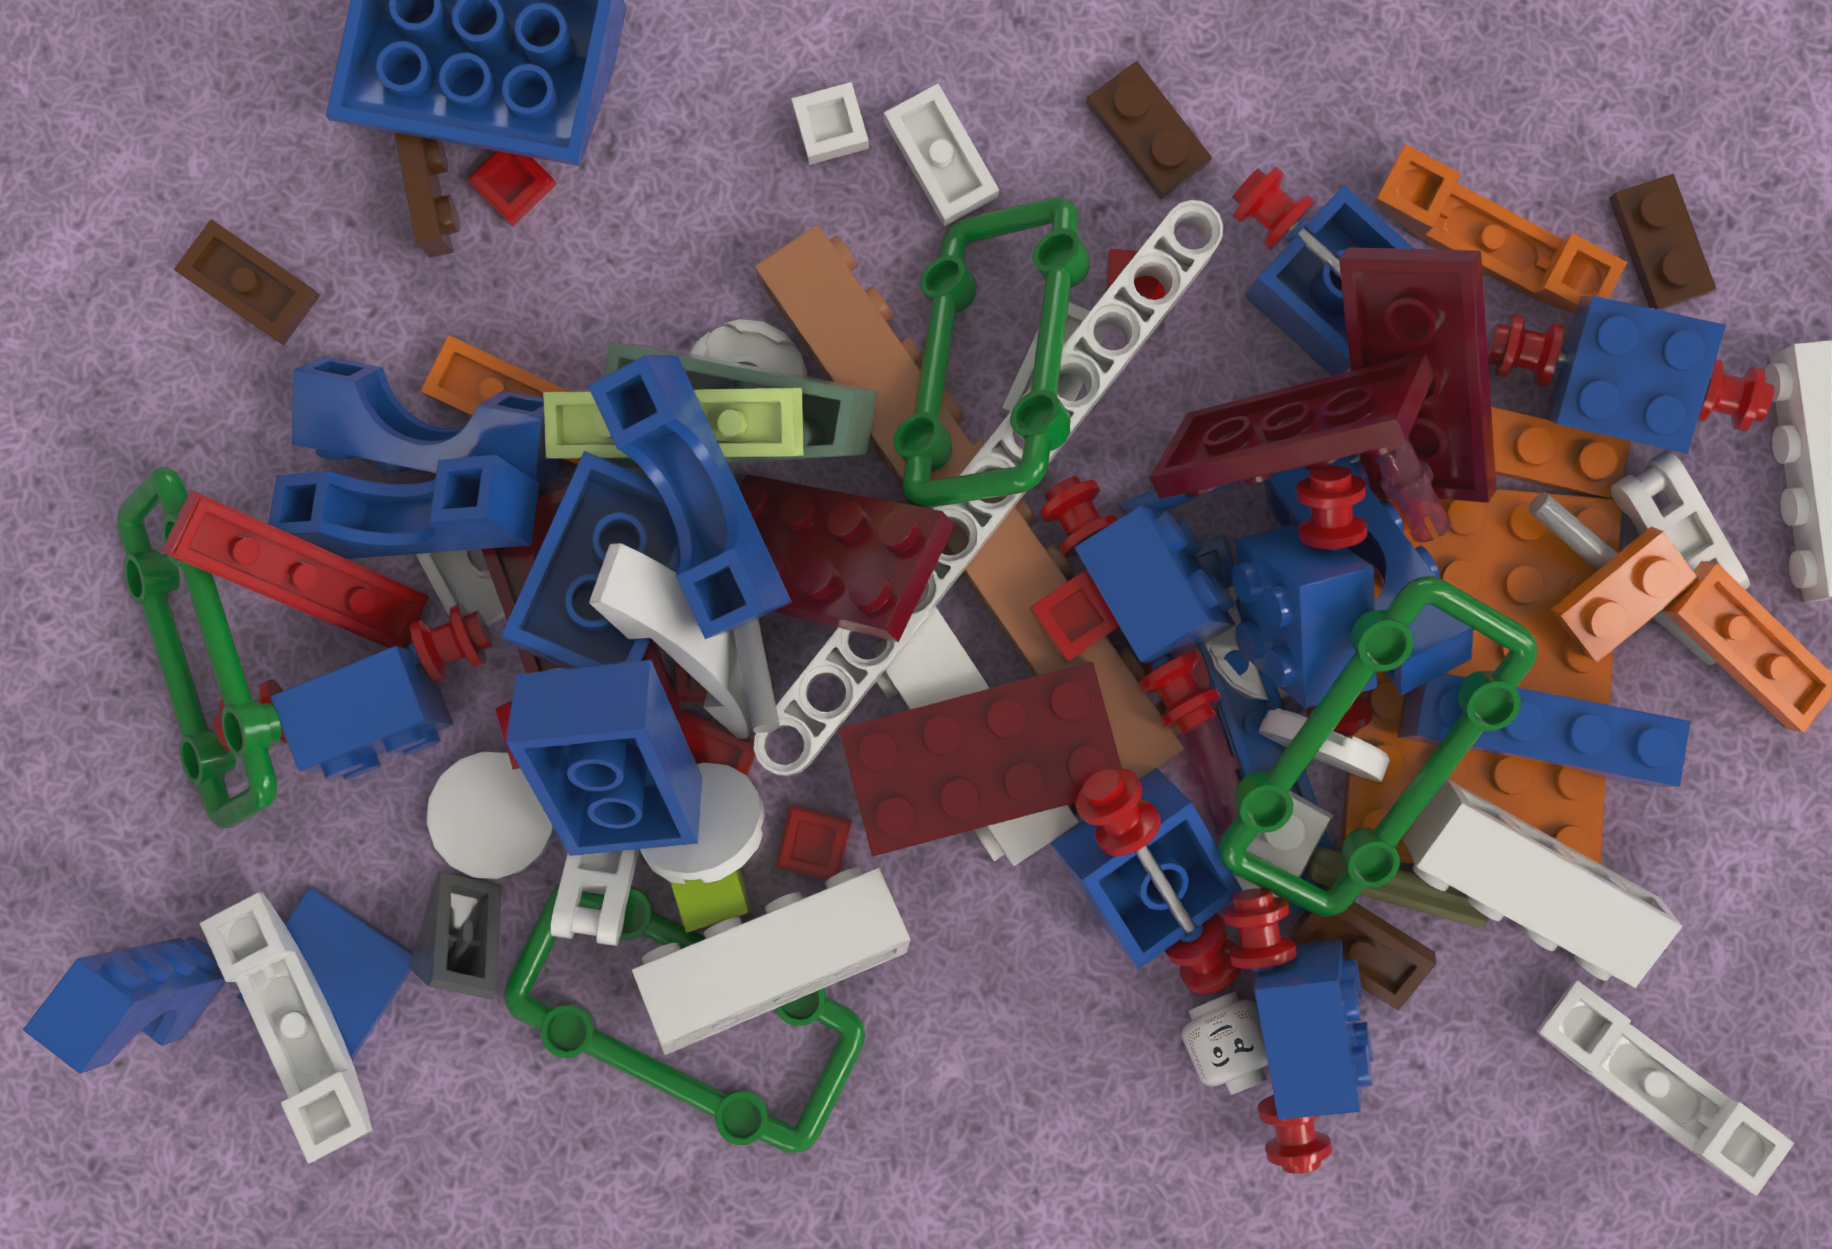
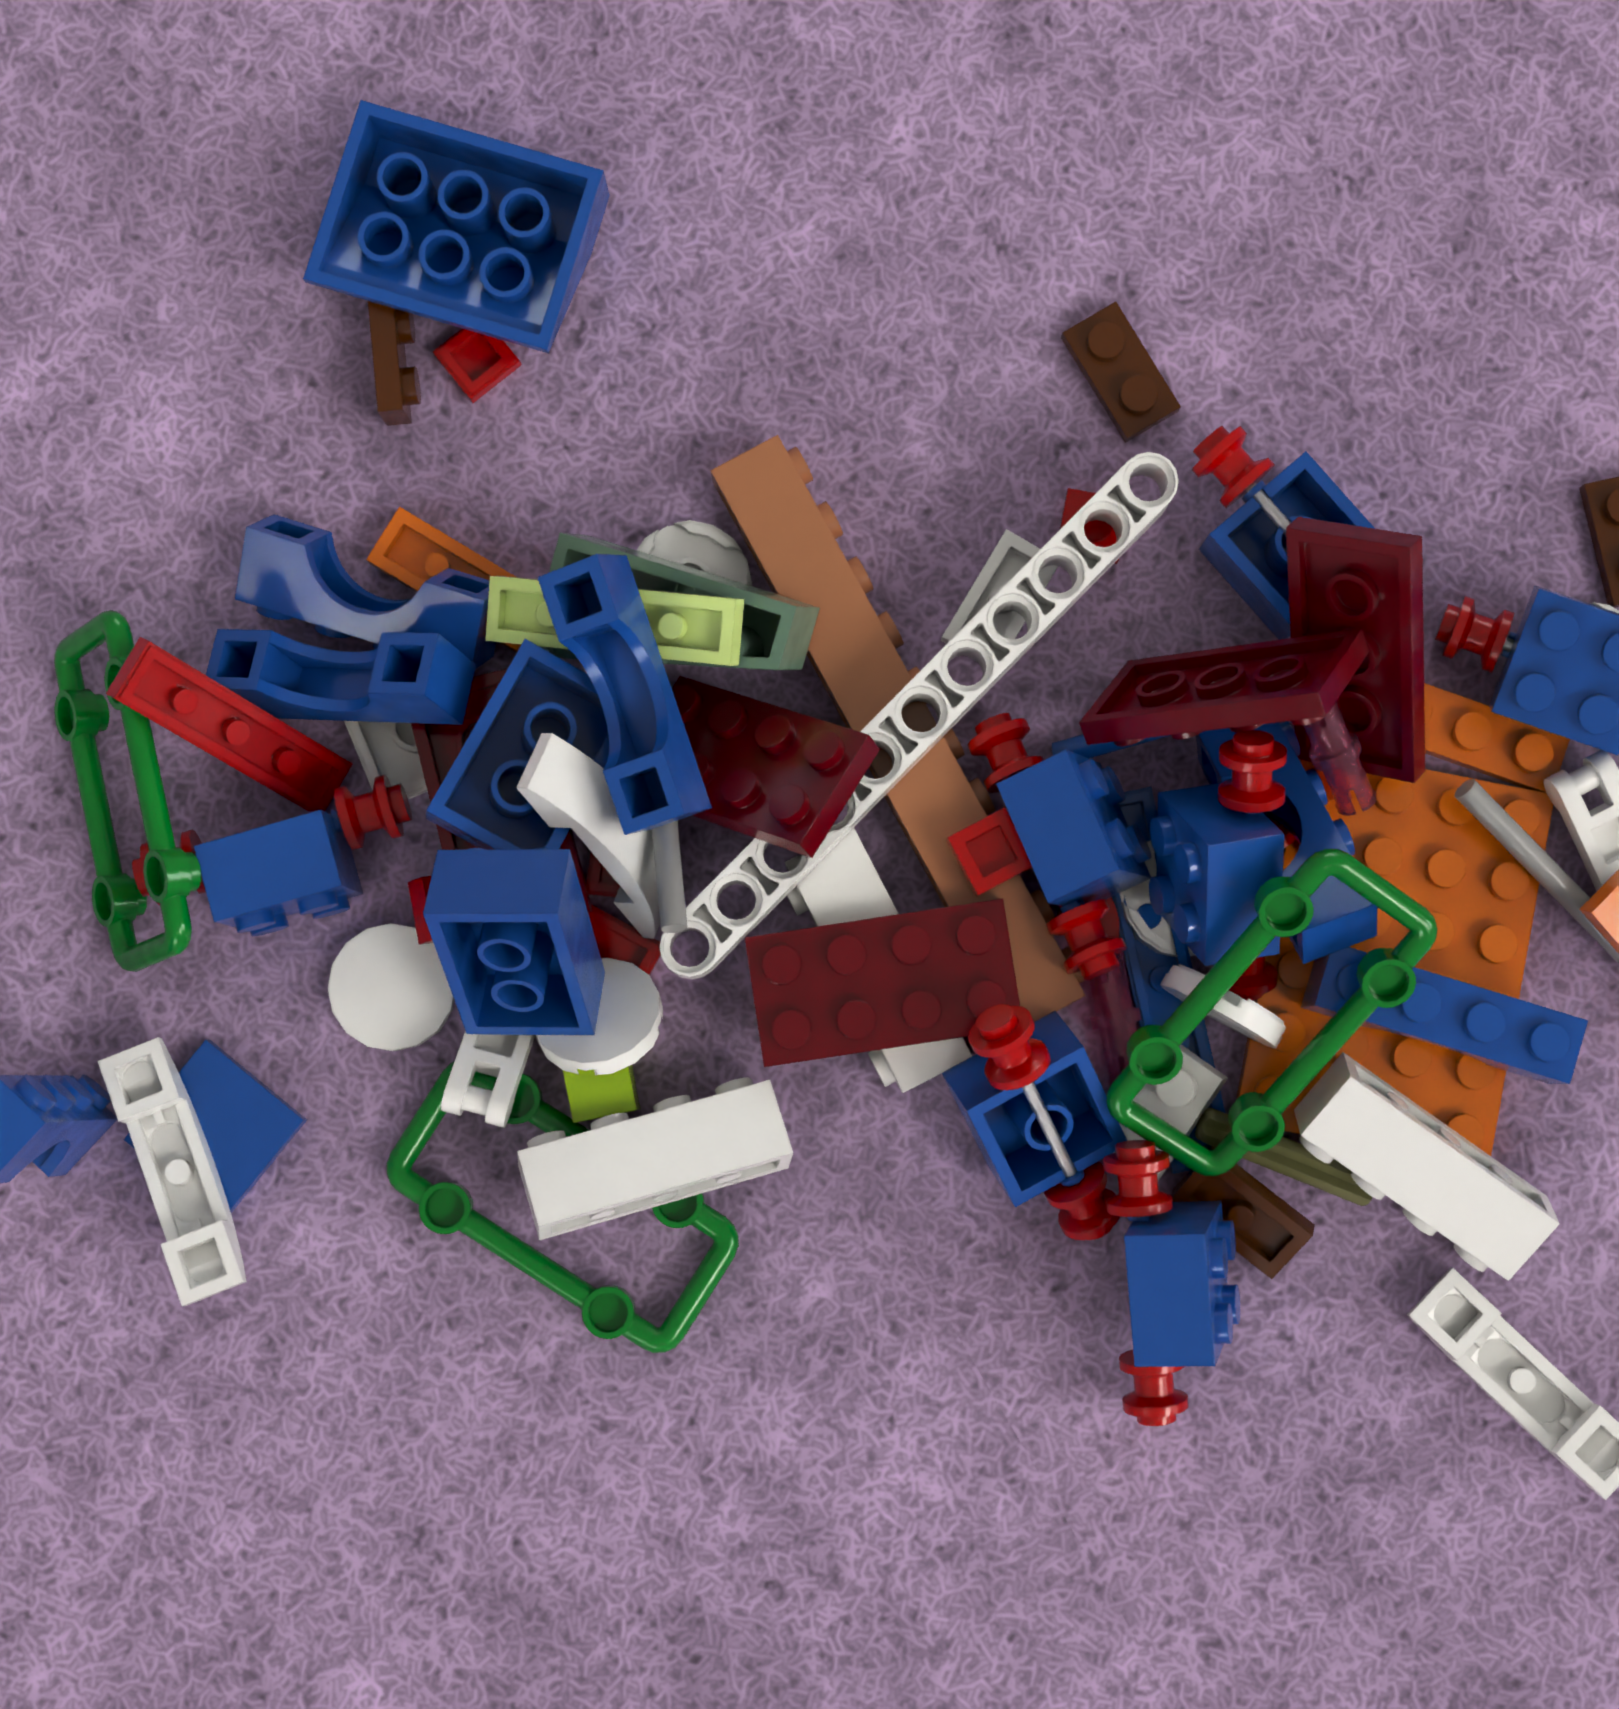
camera: 15 degrees right, 0 degrees up
(247, 282) = (205, 432): reddish brown plate -> none
(460, 937) = (350, 1102): dark grey slope -> none
(813, 843) = (707, 1049): red tile -> none
(830, 123) = (801, 333): white plate -> none
(941, 155) = (909, 376): white plate -> none
(1039, 415) = (972, 651): green bar -> none
(1226, 1043) = (1094, 1292): white head -> none
(1513, 250) = (1454, 517): orange slope -> none
(1624, 594) = (1542, 888): orange plate -> none

